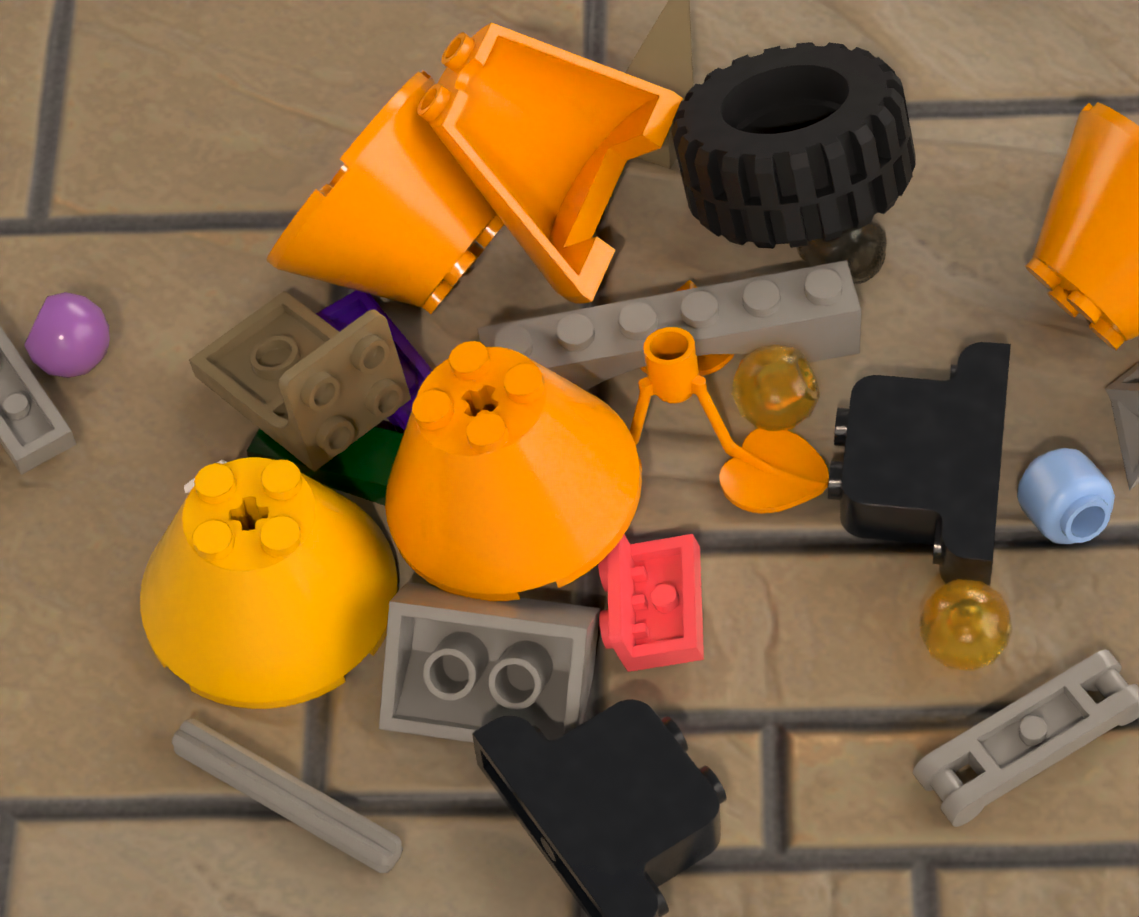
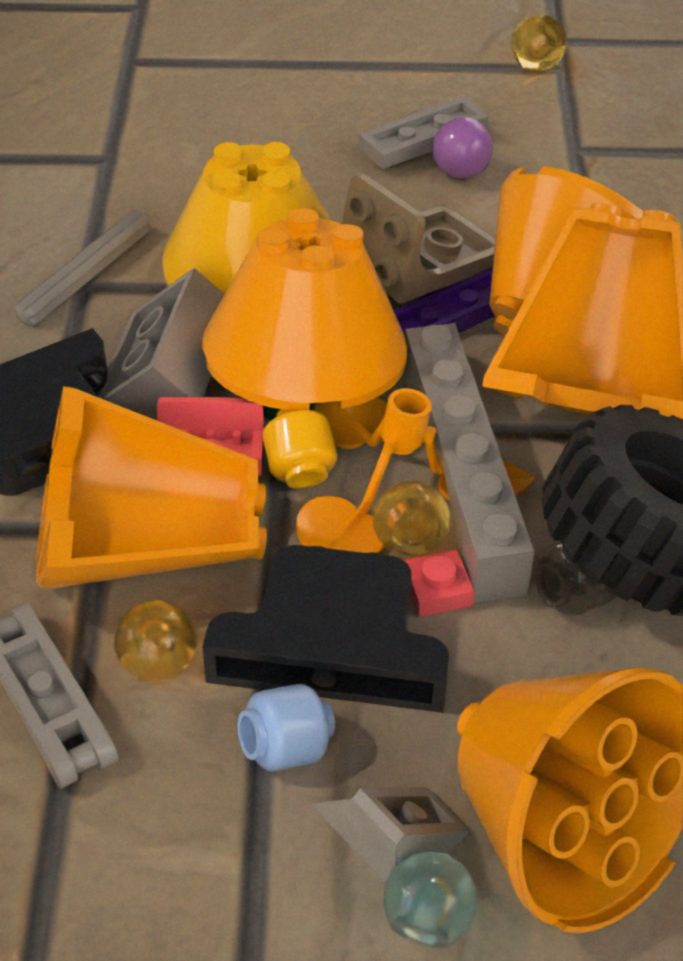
camera: 85 degrees right, 10 degrees down
(674, 498) = (300, 447): none -> yellow head
(794, 660) = (140, 498): none -> light orange cone
(838, 371) = (439, 583): none -> coral plate

